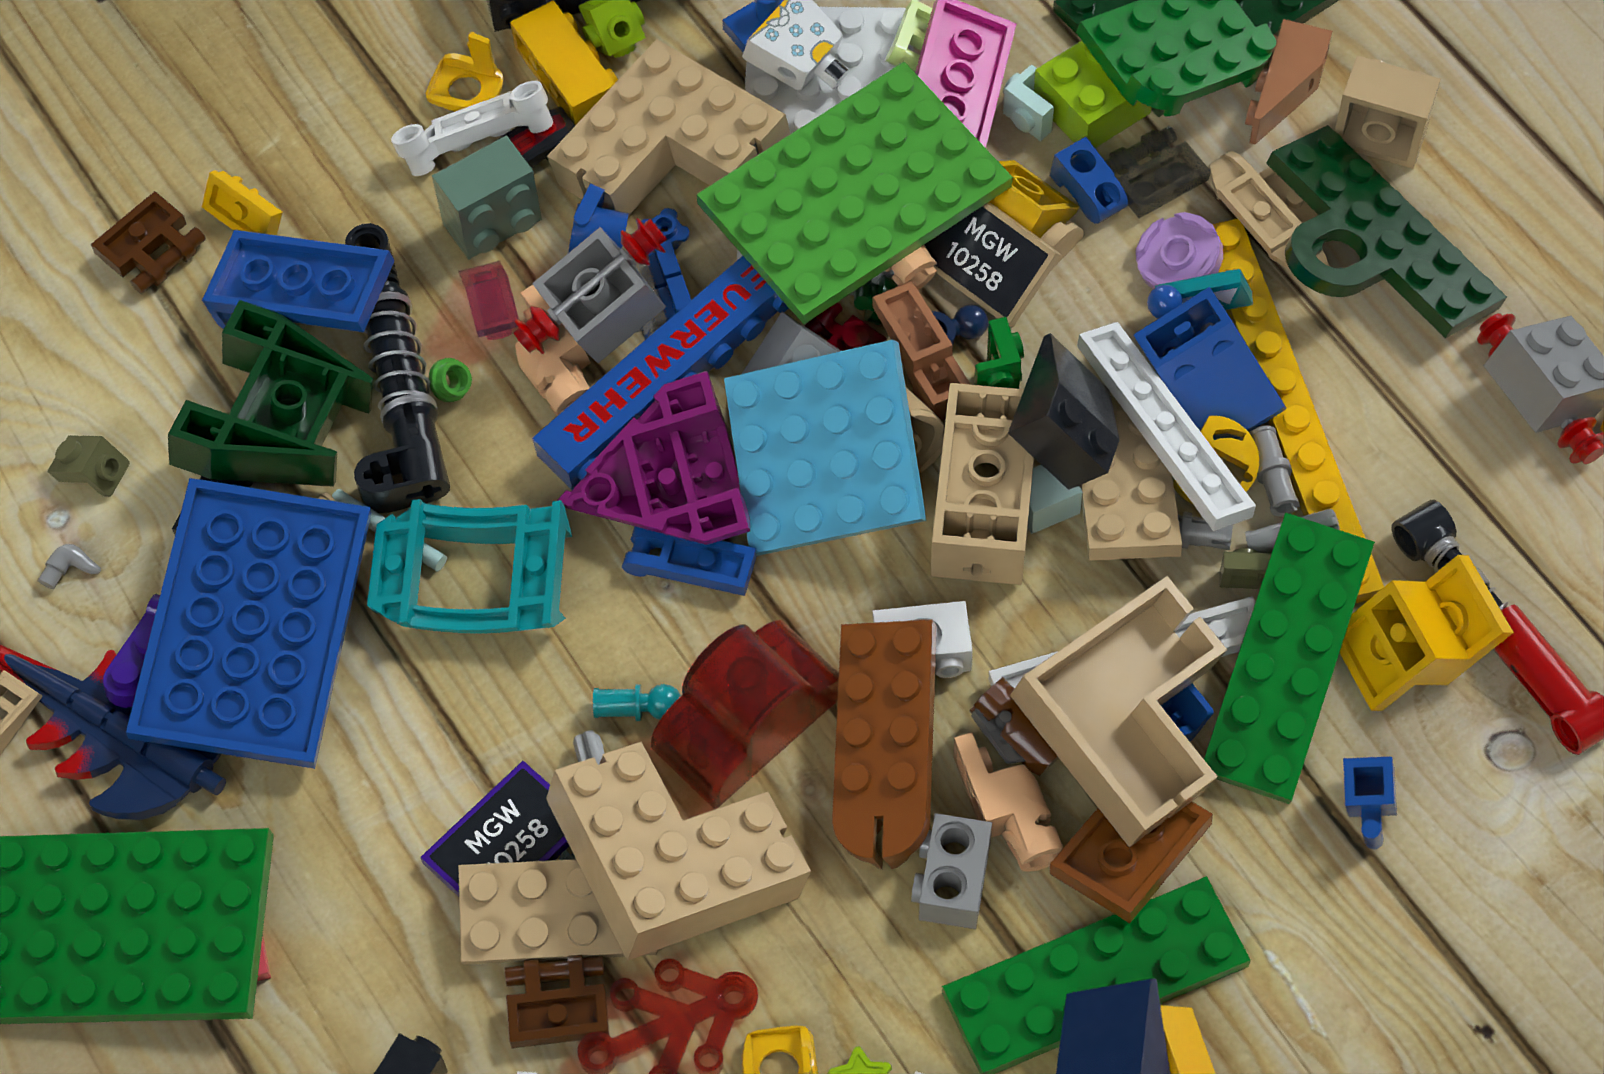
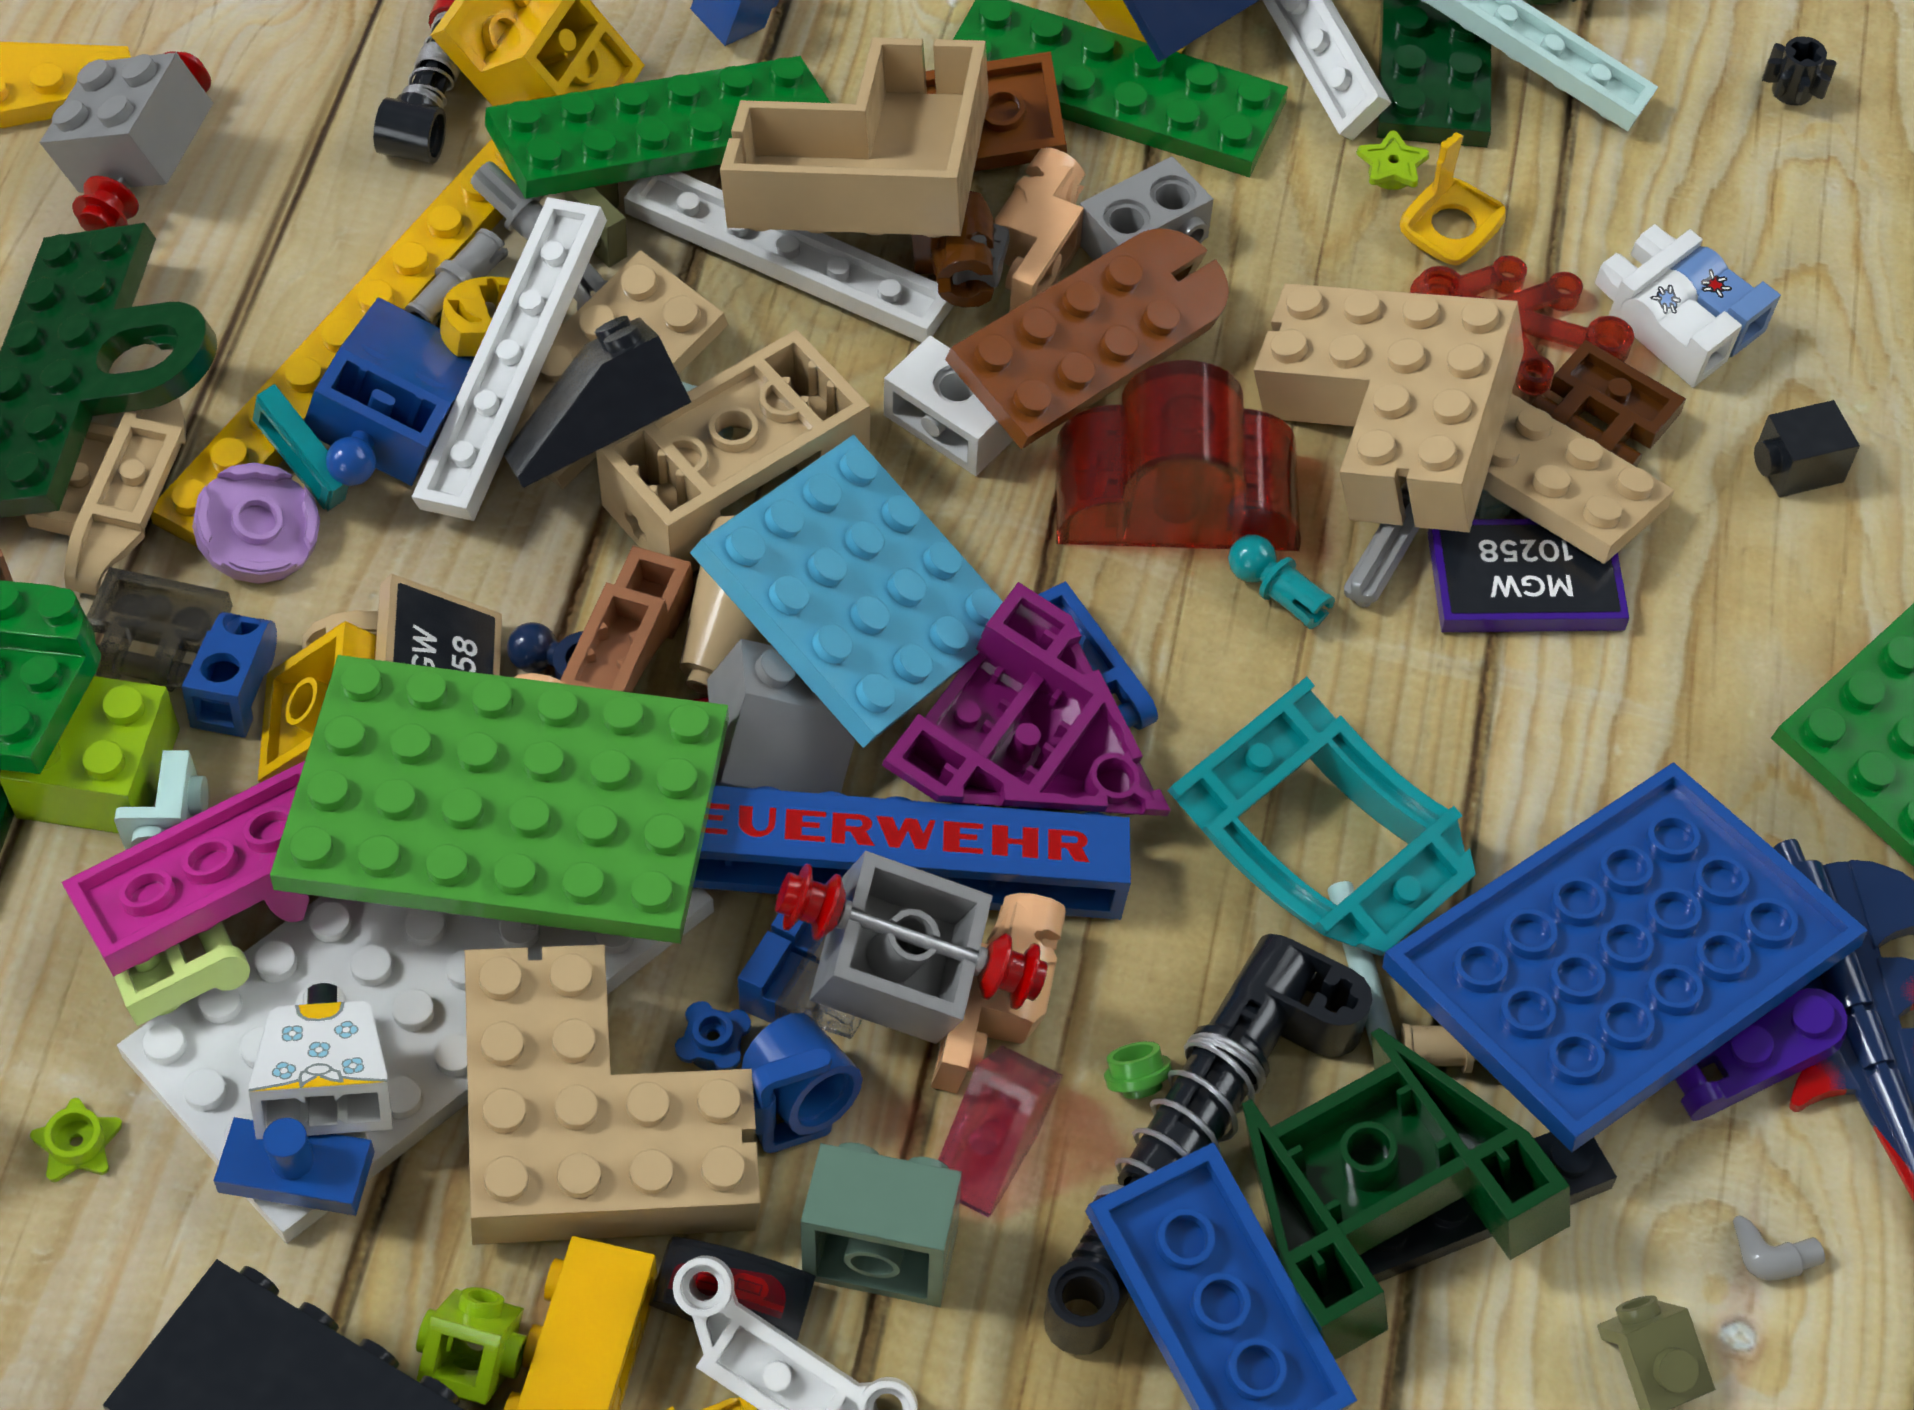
camera: 140 degrees left, 5 degrees down
(1003, 357) = (581, 535): green bracket -> none

